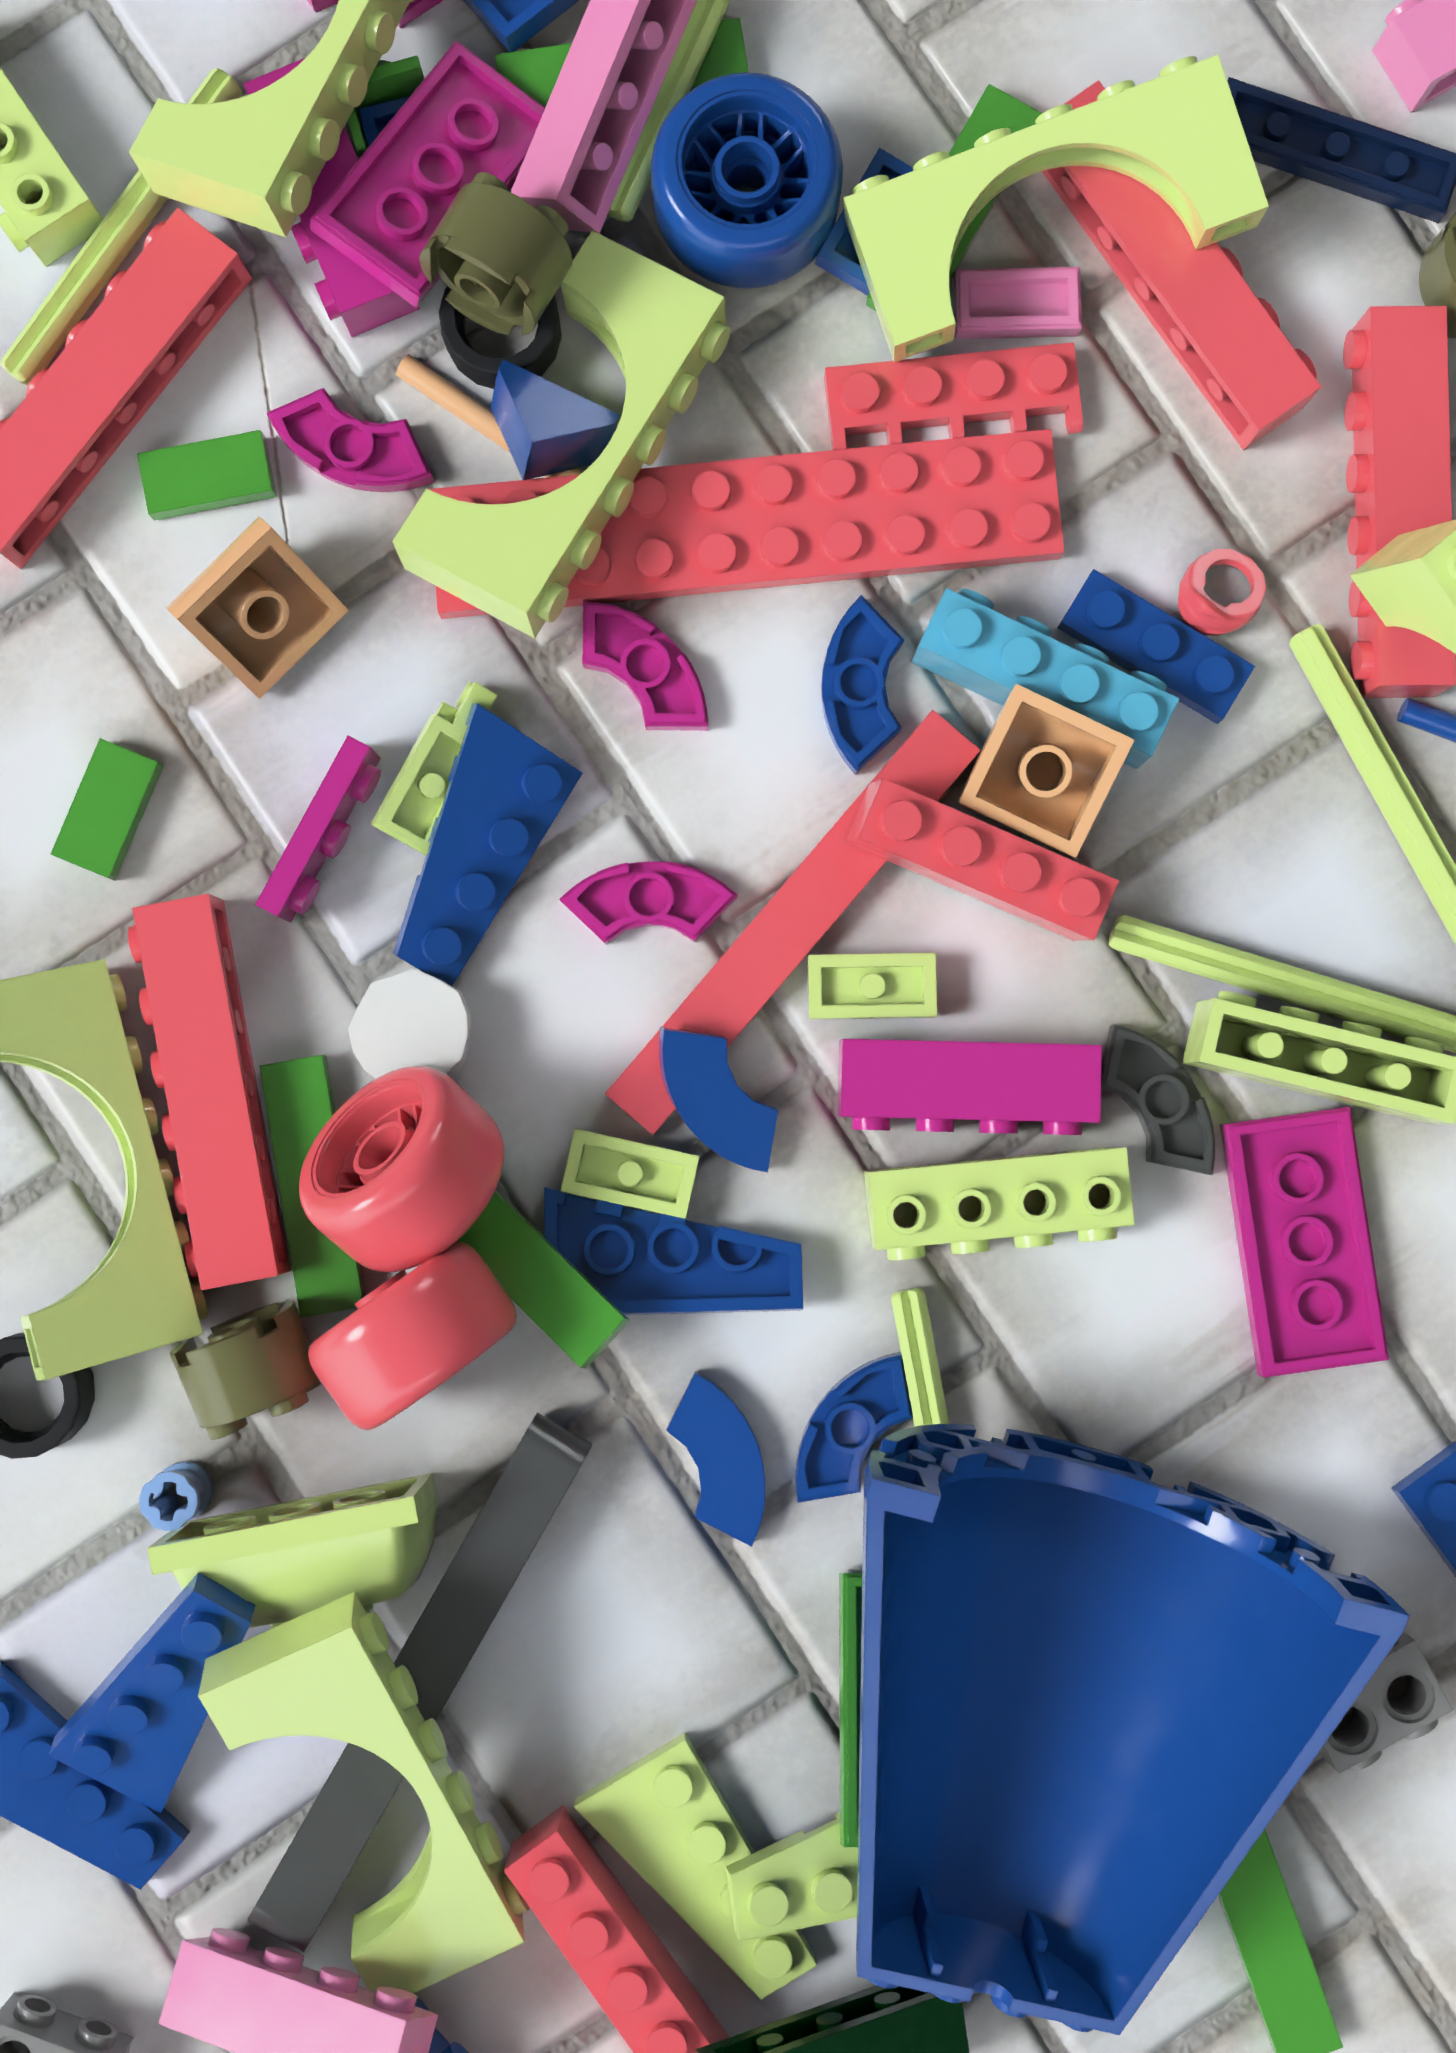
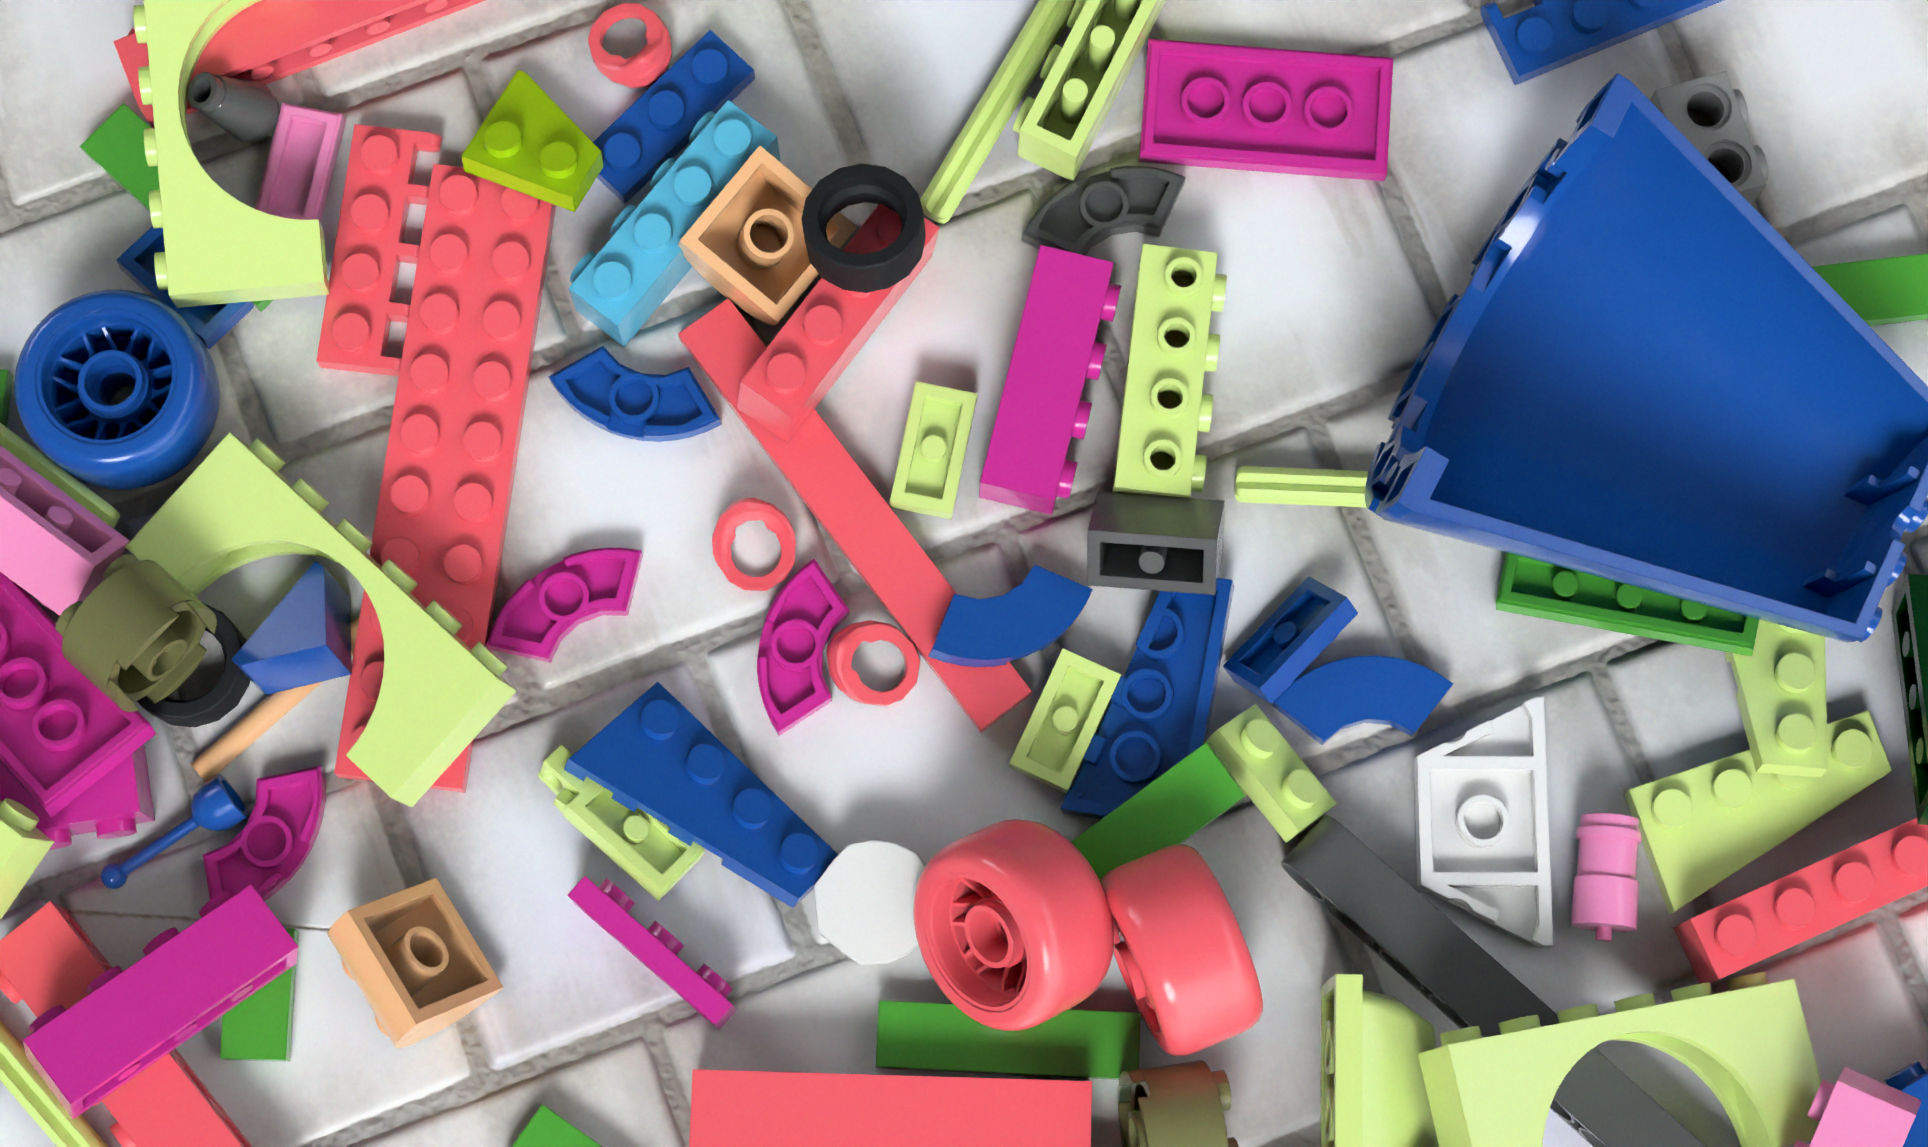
camera: 75 degrees left, 10 degrees down
(155, 375) = (159, 1000): none -> dark pink brick
(369, 386) = (213, 807): none -> blue hinge
(592, 1734) = (1606, 882): none -> bright pink piece
(622, 1385) = (1271, 773): none -> yellowish green plate
(622, 1607) = (1488, 823): none -> white wing
(661, 945) = (840, 656): none -> coral piece
(743, 803) = (724, 534): none -> coral piece
(759, 1377) = (1290, 639): none -> blue plate
(821, 1225) = (1155, 543): none -> dark grey brick
(846, 1426) = (1350, 563): blue tile -> none
(1063, 218) = (236, 105): none -> dark grey cone
(1088, 521) = (534, 147): none -> lime wing
(1111, 841) = (854, 186): none -> black tyre

